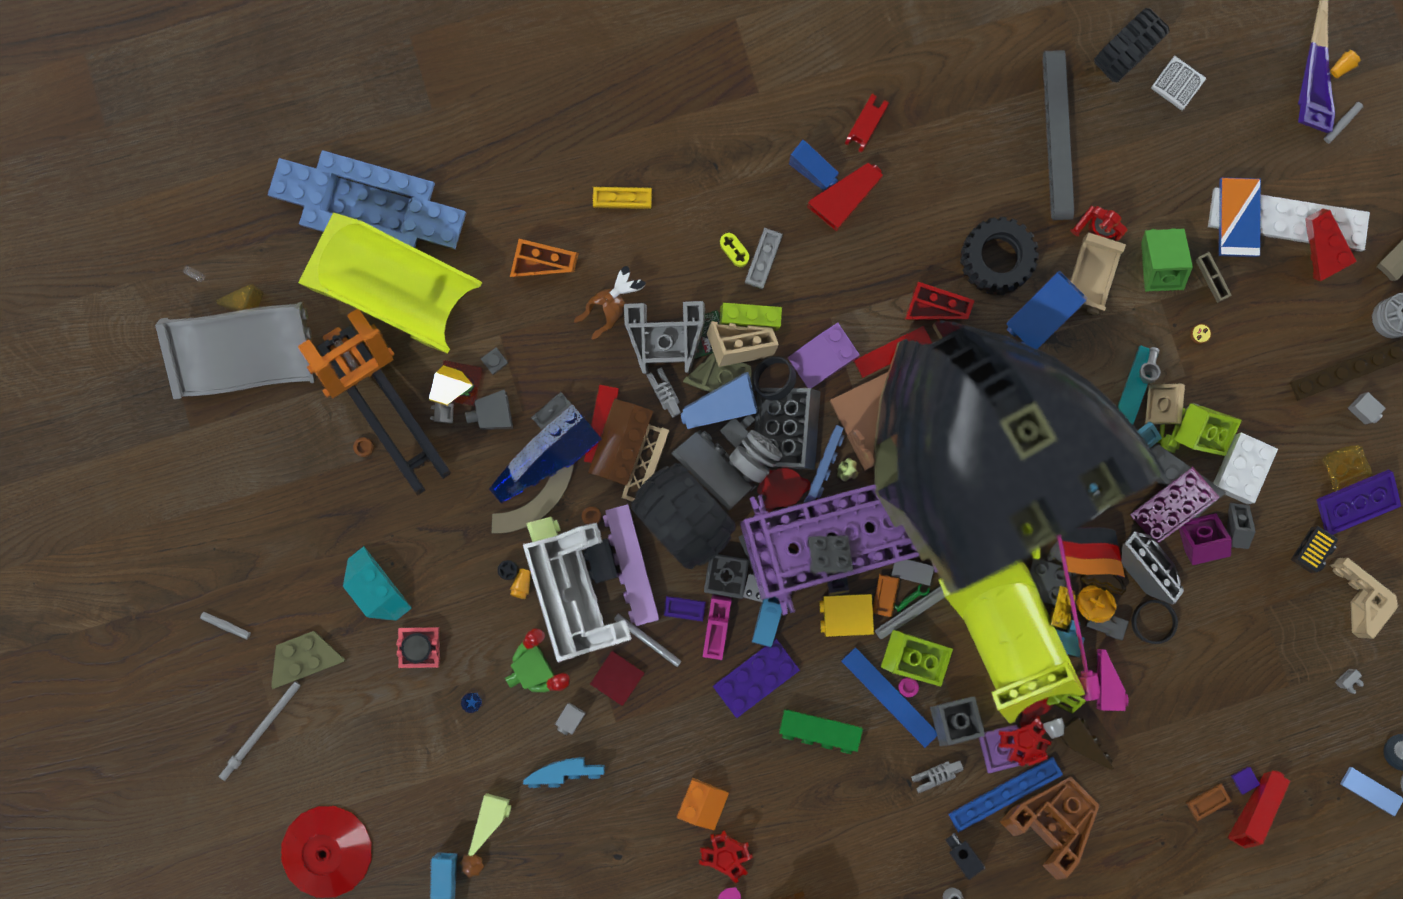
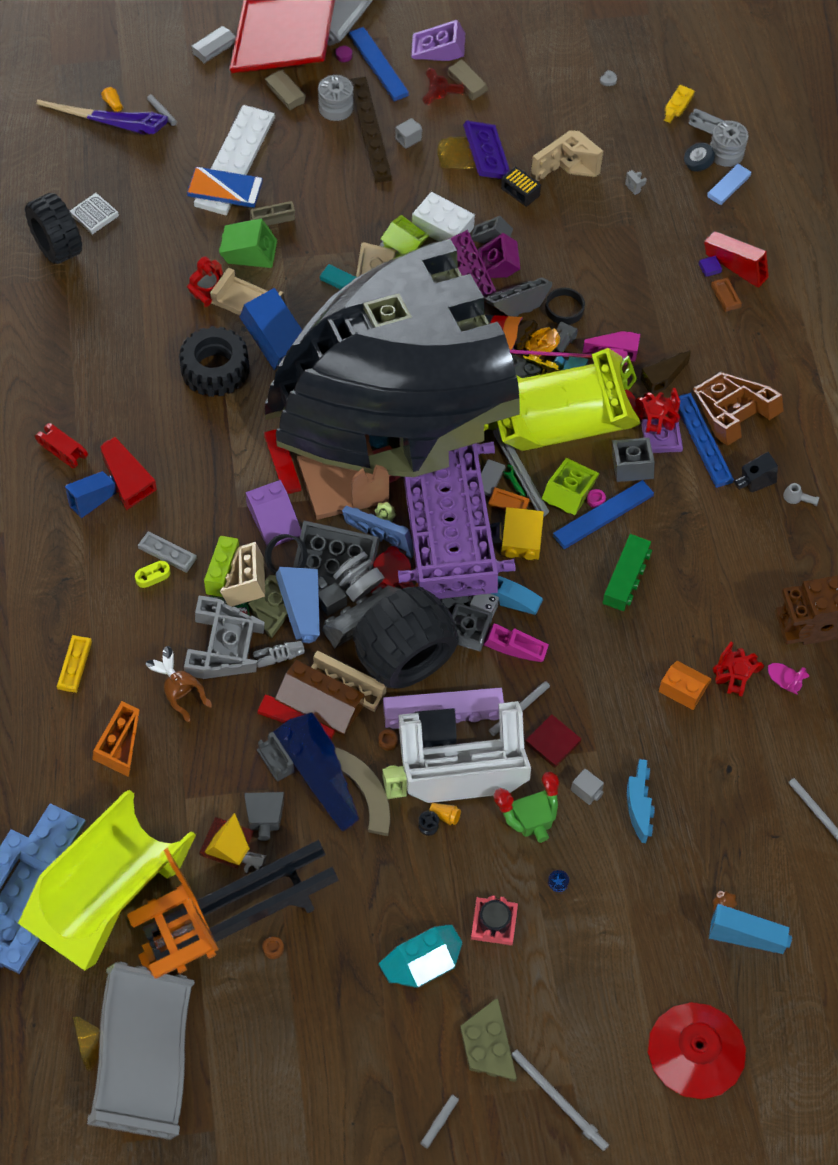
camera: 85 degrees left, 25 degrees down
(193, 273) = (42, 1096): clear tile -> none
(491, 815) = (681, 878): yellowish green slope -> none
(494, 361) = (211, 805): dark grey plate -> none
(684, 608) = (493, 670): dark purple tile -> none
(756, 678) = (571, 621): dark purple plate -> none
(830, 554) = (466, 517): dark grey hinge -> none
(935, 303) = (245, 416): red wedge -> none
(938, 775) = (680, 486): light grey hinge -> none
(1054, 728) = (648, 384): light grey bar -> none
(1058, 135) = (115, 303): dark grey beam -> none
(1150, 368) = (345, 268): light grey bar -> none
(1200, 333) = (319, 234): tile -> none
(1327, 244) = (264, 130): red wedge -> none

